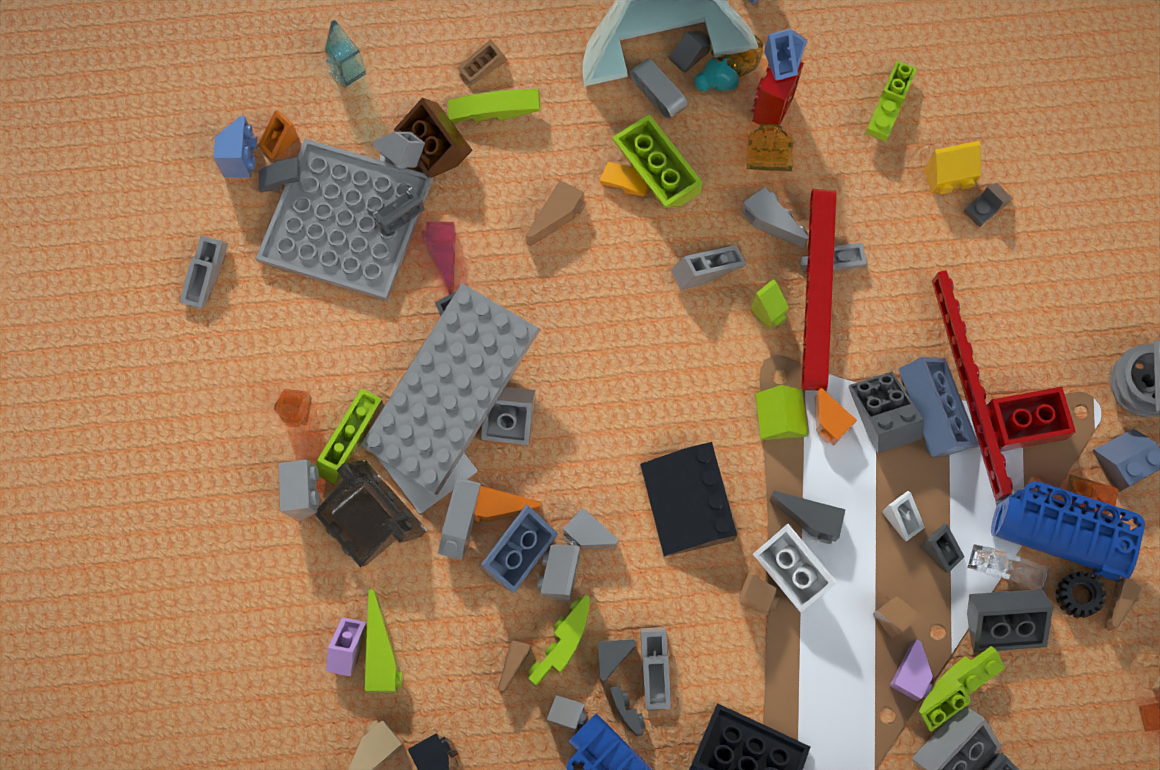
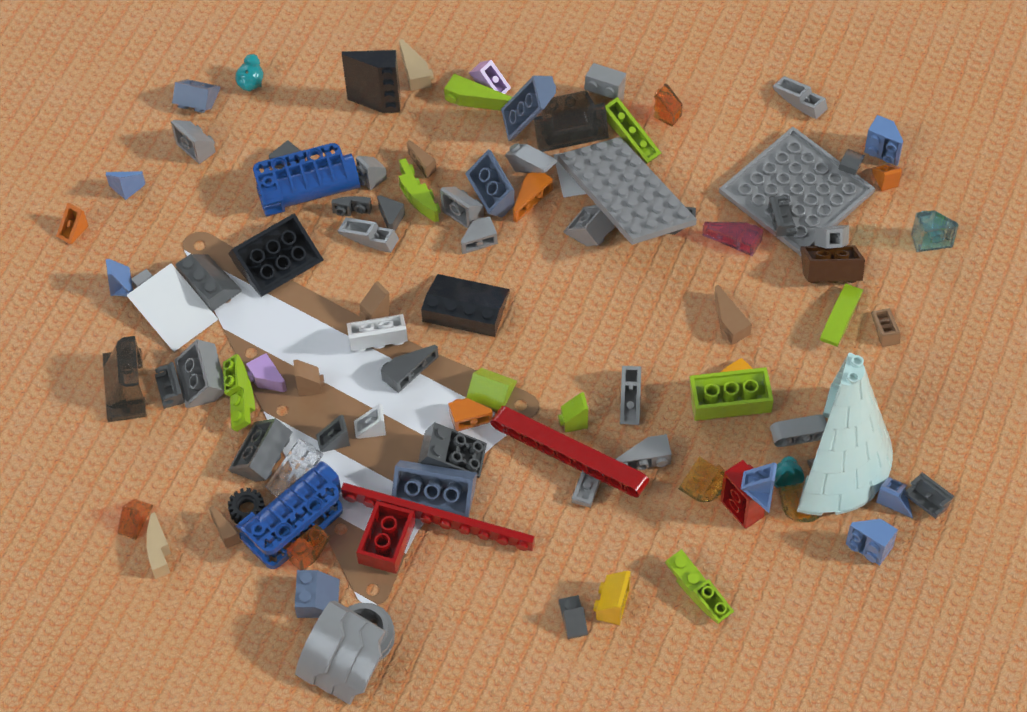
camera: 120 degrees right, 15 degrees down
(391, 552) = (527, 104): none -> sand blue slope

